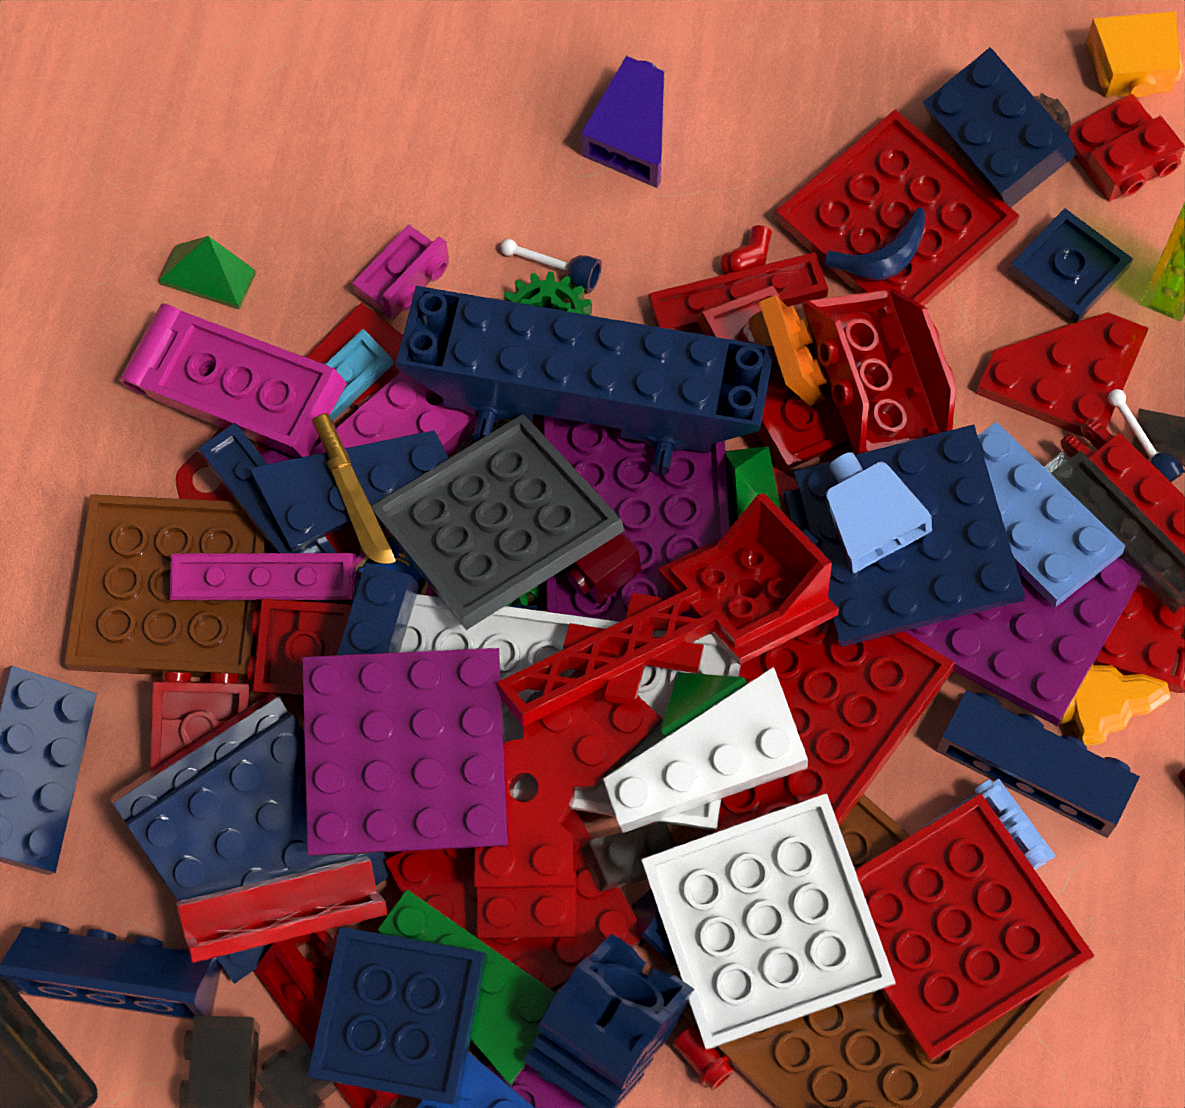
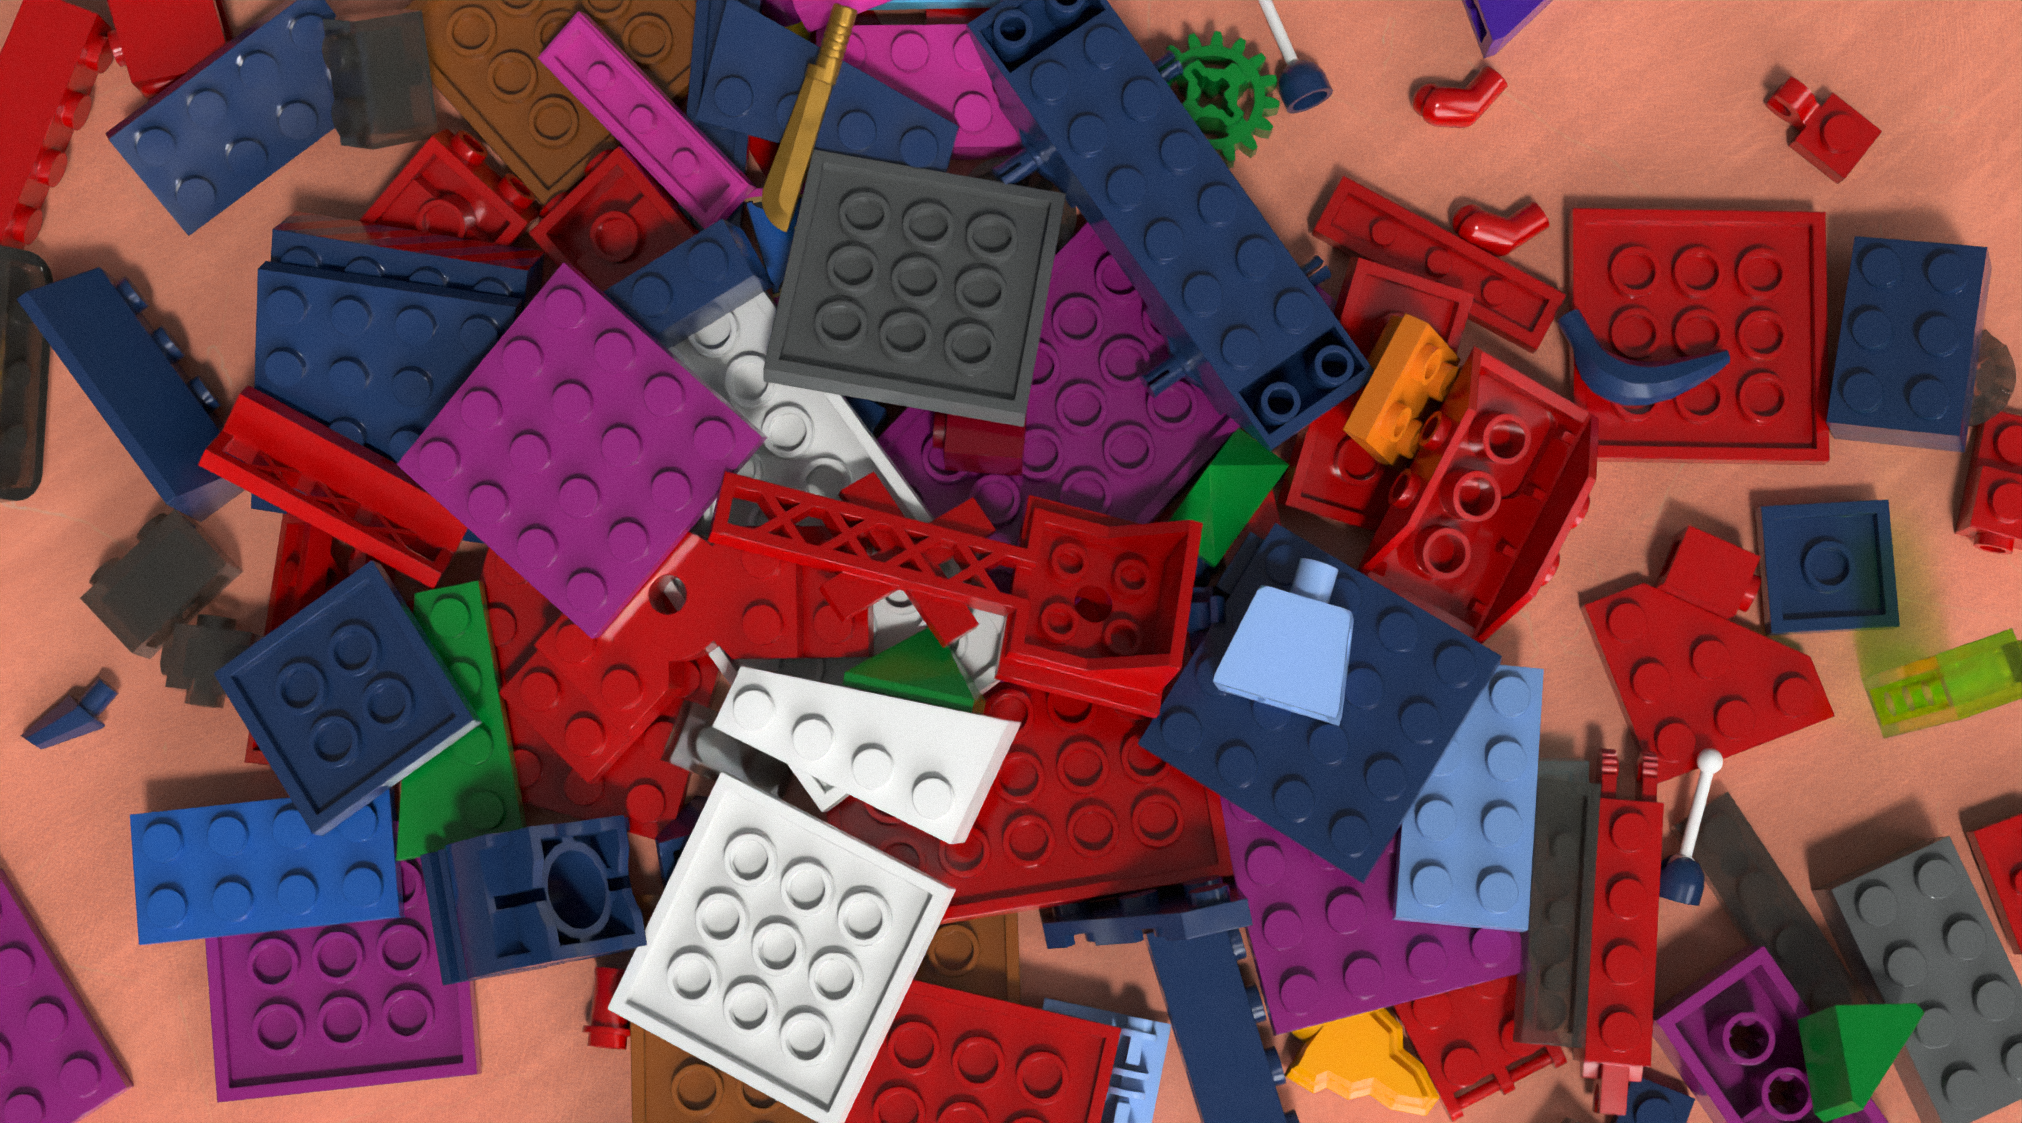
camera: 45 degrees right, 15 degrees up
(92, 684) = (379, 78): none -> clear smoke brick
(669, 216) = (1459, 106): none -> red arm
(855, 76) = (1829, 134): none -> red plate
(929, 726) = (1177, 913): none -> dark blue plate
(1019, 315) = (1709, 573): none -> red brick

